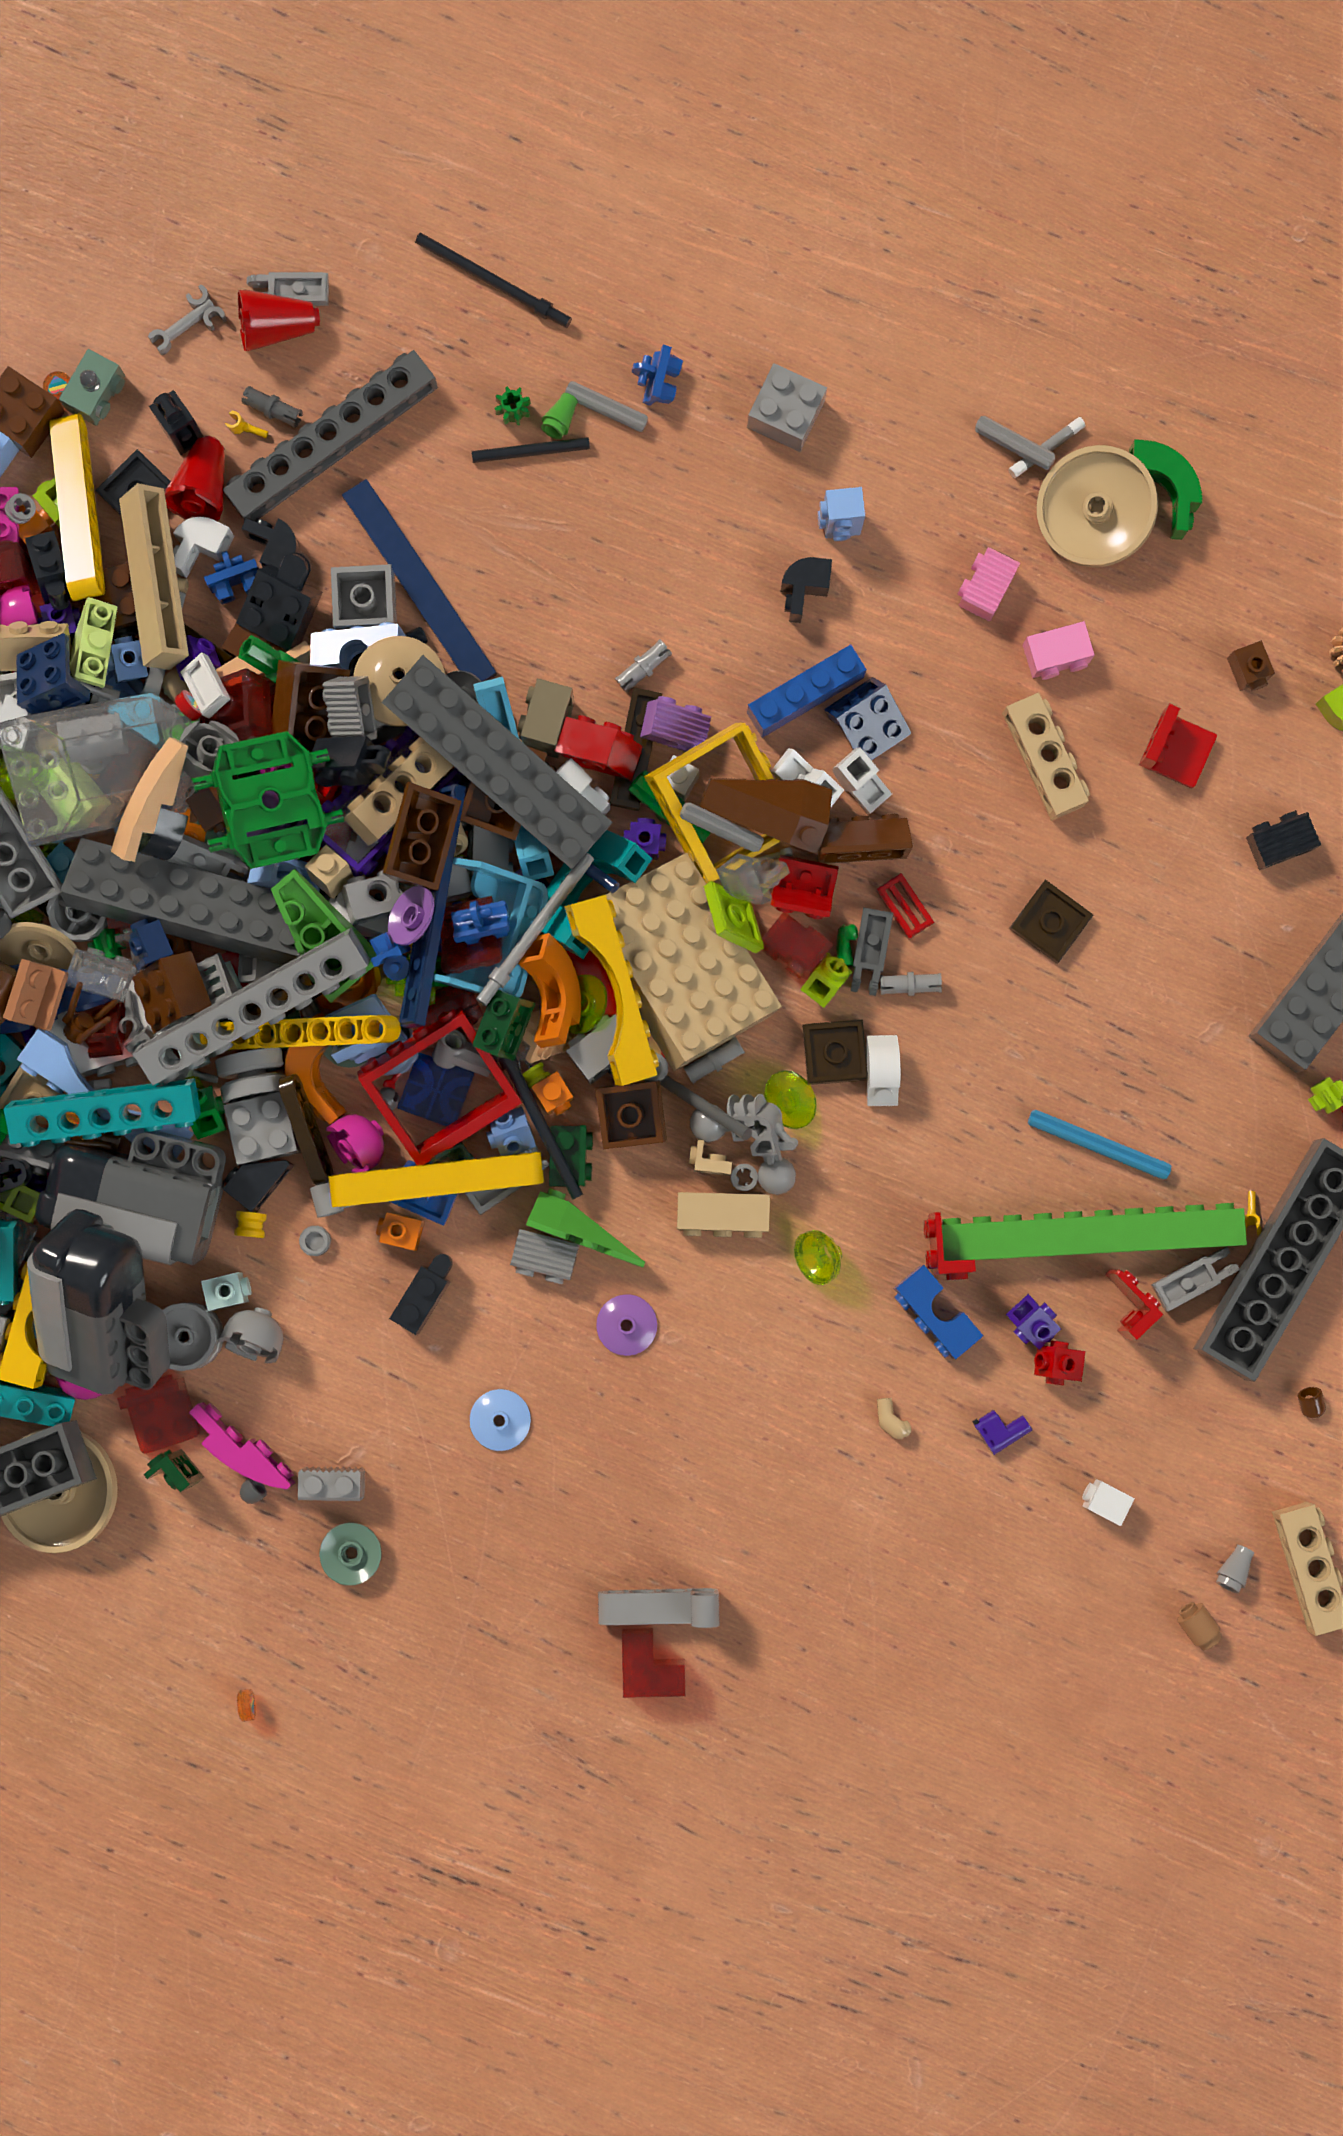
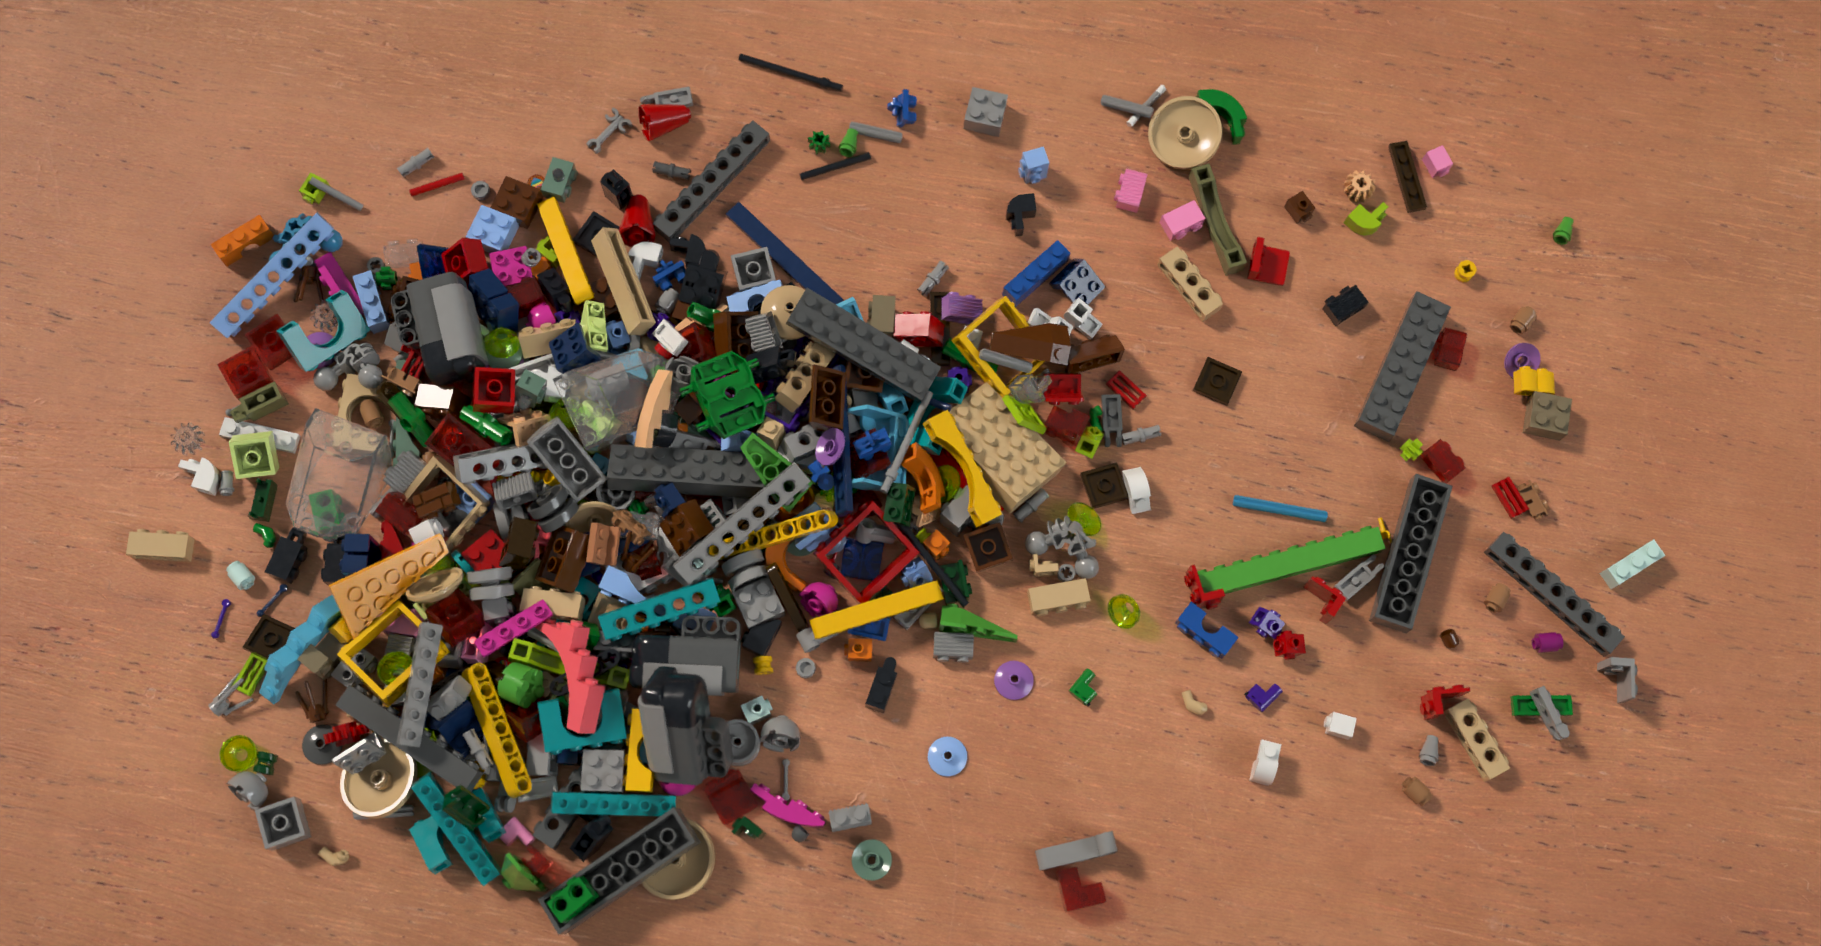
camera: 15 degrees left, 10 degrees down
(80, 966) = (625, 521): none -> medium nougat hinge
(220, 621) = (667, 302): none -> light grey brick
(242, 426) = (654, 186): yellow hand -> none
(244, 1429) = (786, 763): none -> light grey hinge
(516, 1207) = (928, 620): none -> tan piece
(706, 1108) = (1034, 532): dark grey bar -> none
(724, 1360) = (1081, 690): none -> green piece
(977, 1540) = (1266, 764): none -> white brick
(1116, 697) = (1207, 196): none -> olive arch
(1257, 1496) = (1432, 704): none -> red bracket

